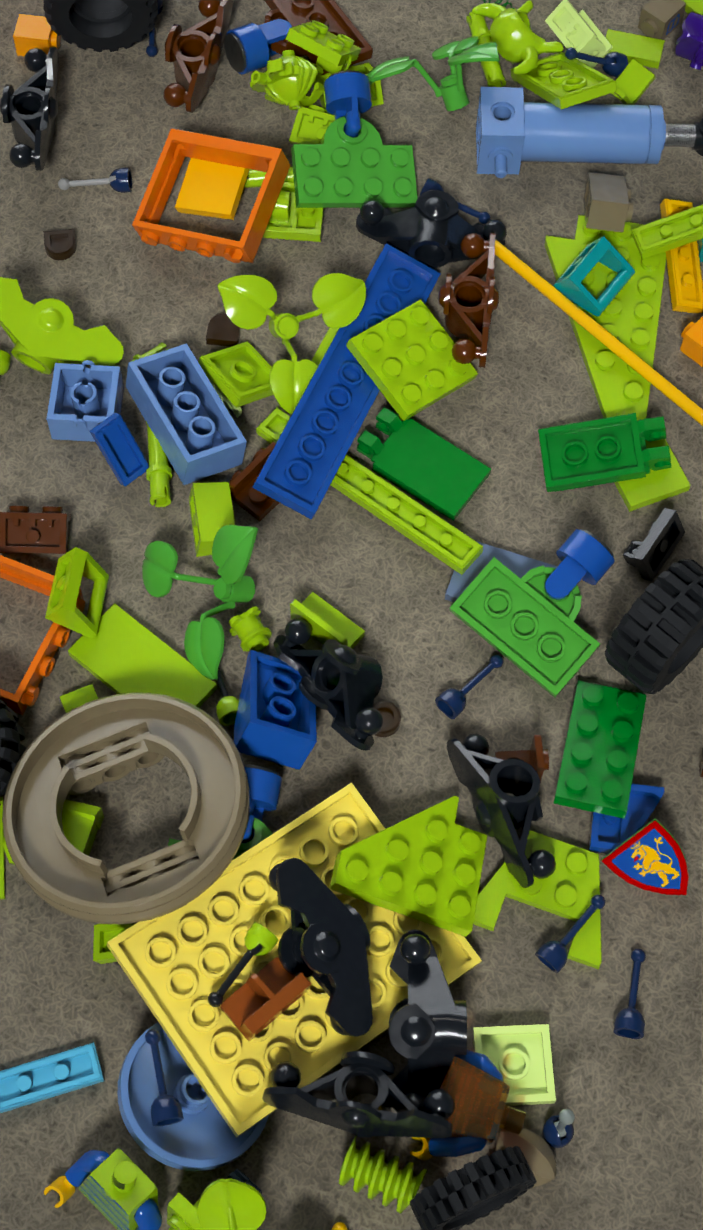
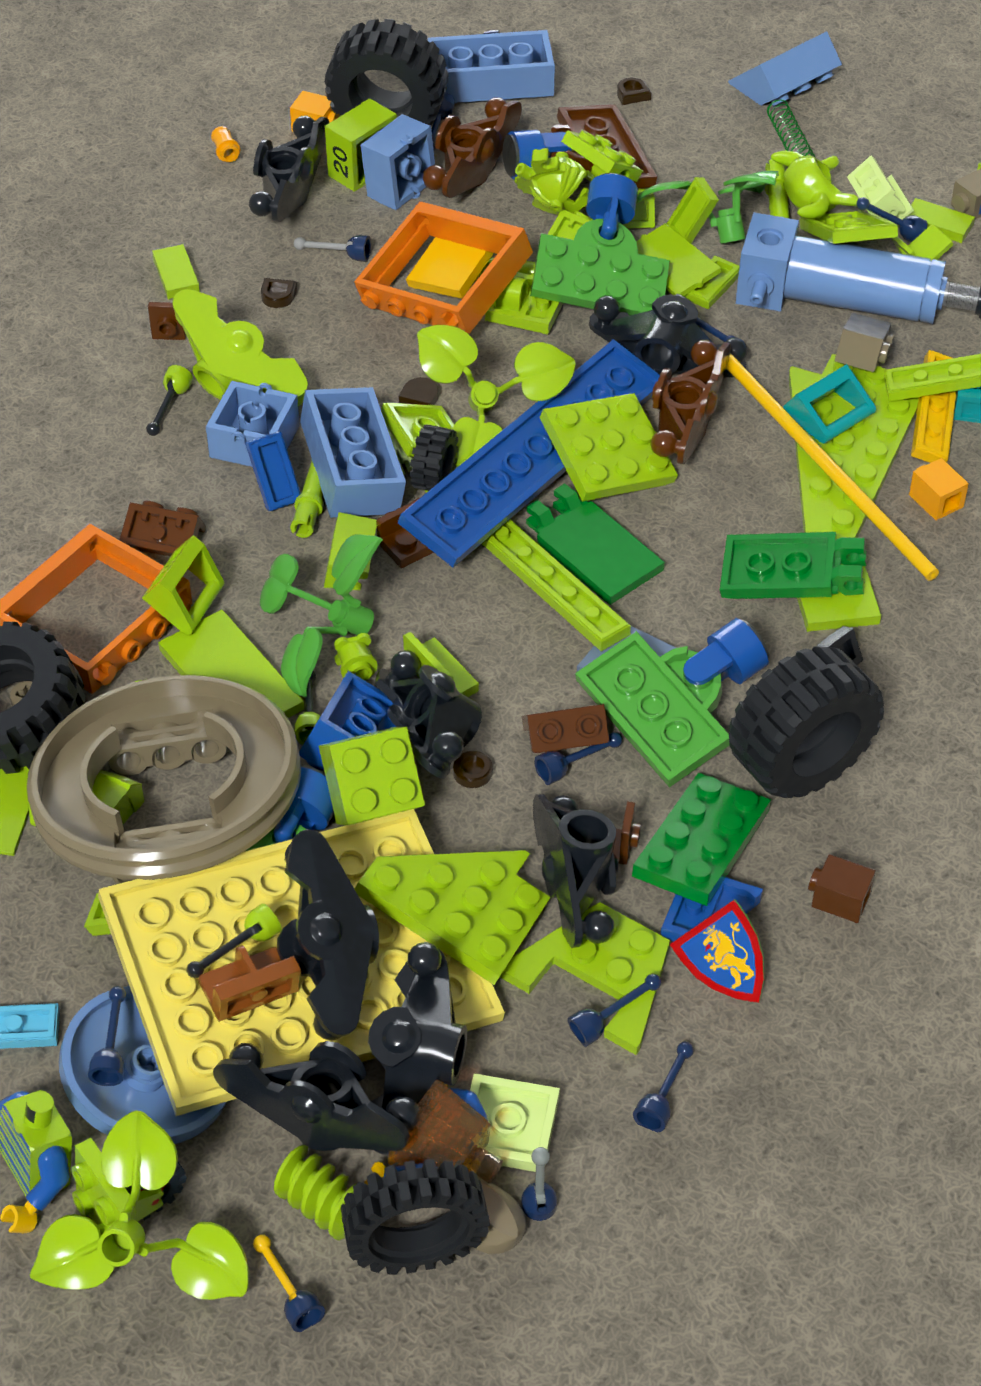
camera: 15 degrees right, 15 degrees down
(93, 67) = (345, 137): none -> lime brick
(134, 80) = (397, 160): none -> medium blue brick
(264, 410) = (433, 456): none -> black tyre
(310, 764) = (371, 775): none -> lime brick
(418, 88) = (693, 209): none -> lime tile
(430, 145) = (687, 264): none -> lime piece
(450, 155) = (715, 287): none -> lime tile
(454, 661) = (566, 728): none -> reddish brown bracket

